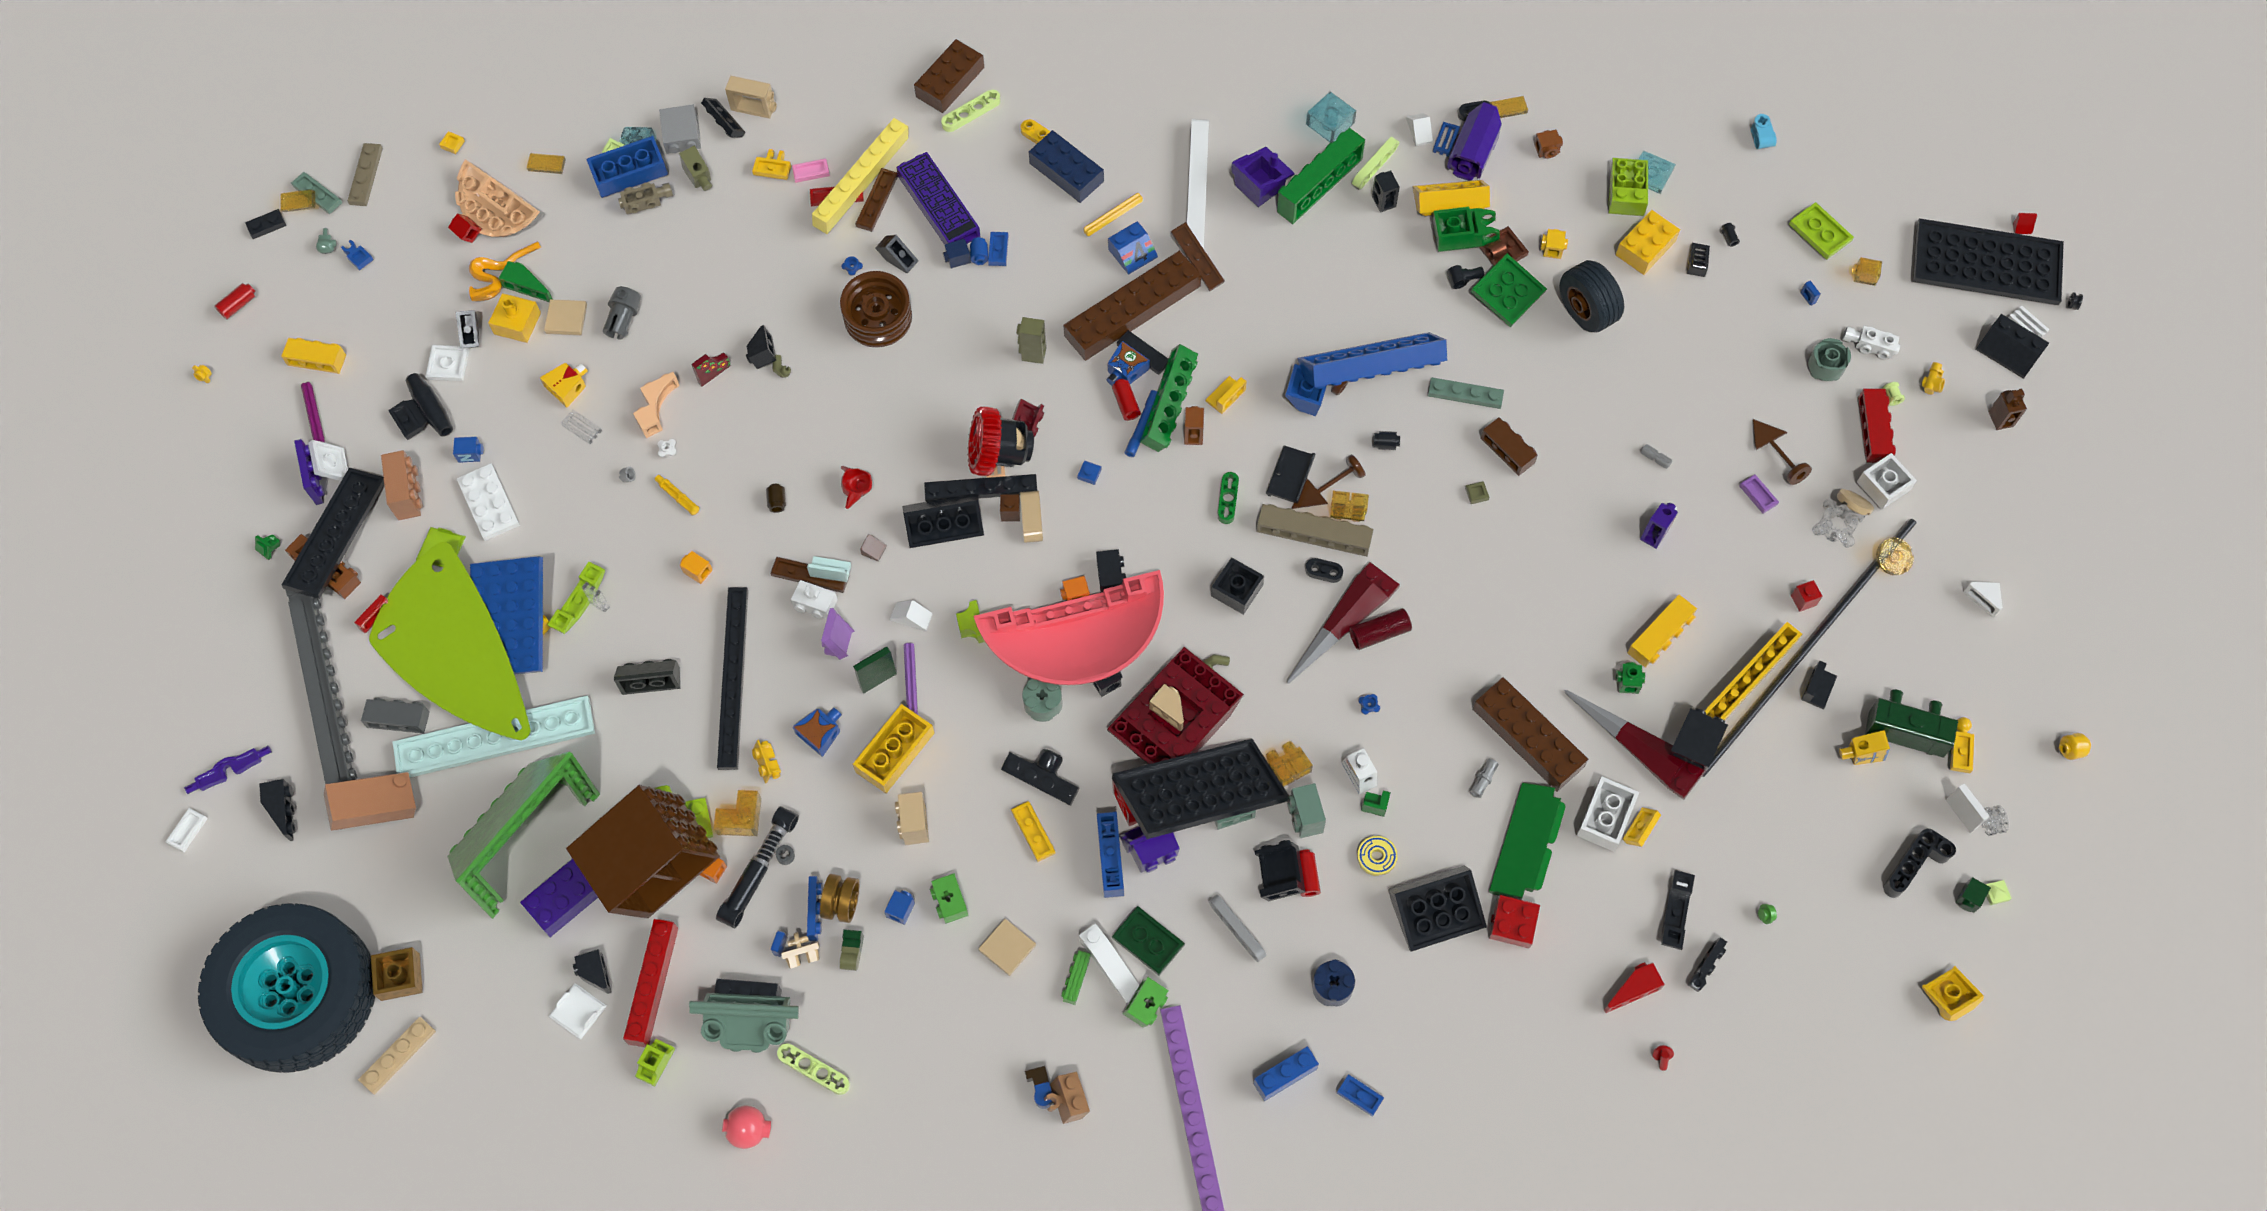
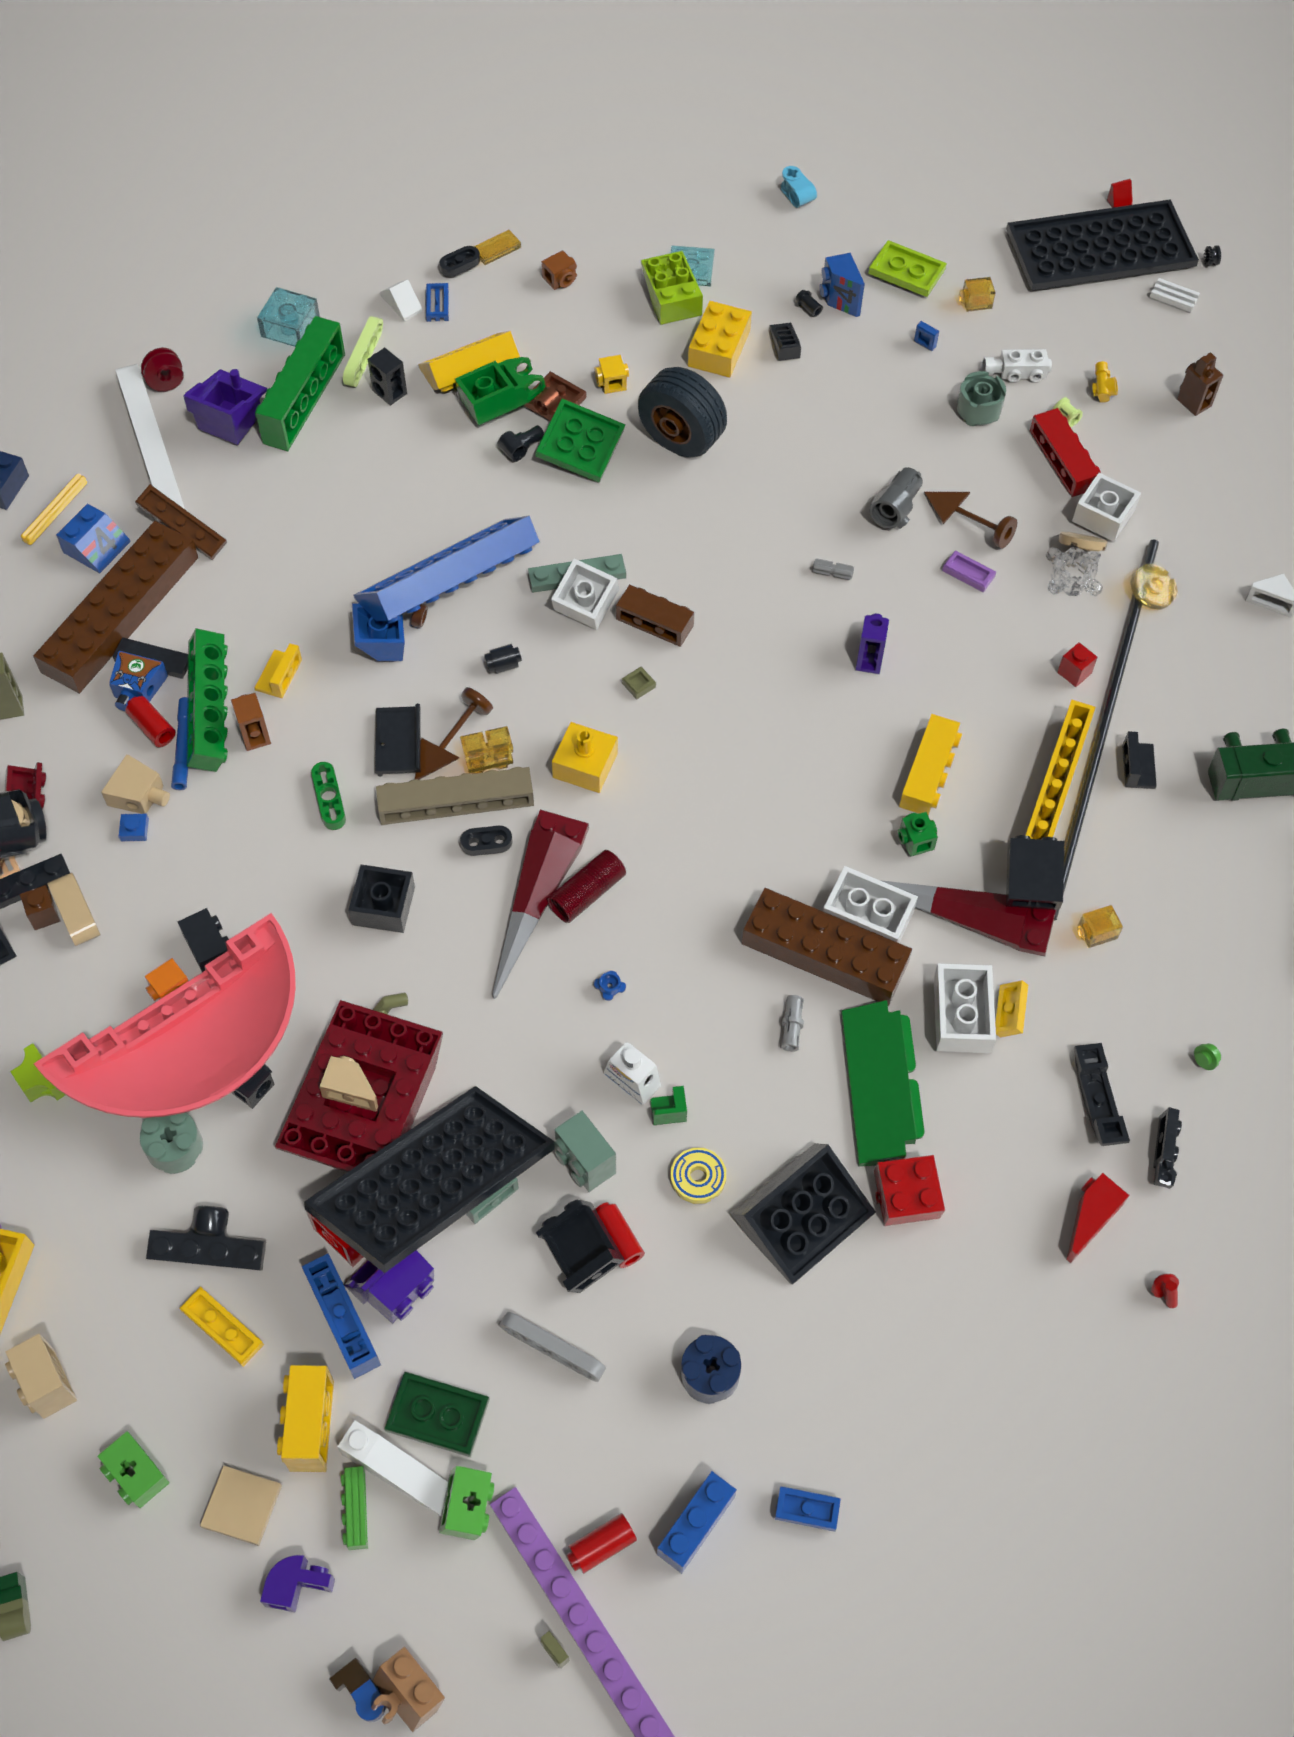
camera: 25 degrees left, 5 degrees down
(900, 907) = (64, 1511): blue brick -> none
(1021, 1002) = (288, 1577): none -> dark purple brick
(1066, 910) = (306, 1418): none -> yellow brick
(1100, 444) = (134, 787): none -> tan torso
(1167, 1113) = (554, 1649): none -> olive tile
(1220, 1062) = (601, 1544): none -> red brick
(1225, 130) = (162, 369): none -> dark red piece
(1291, 765) = (540, 1101): clear yellow hips -> none
(1416, 535) = (585, 757): none -> yellow brick
(1464, 413) = (585, 594): none -> white brick
(1475, 142) = (474, 291): dark purple brick -> none
(1573, 717) = (871, 904): none -> white brick
(1724, 421) = (894, 502): none -> dark grey piece
(1732, 793) = (1099, 926): none -> clear yellow brick
(1761, 229) = (842, 284): none -> blue slope
(1867, 748) = (1230, 813): yellow torso -> none
(2012, 346) = (1170, 321): black slope -> none

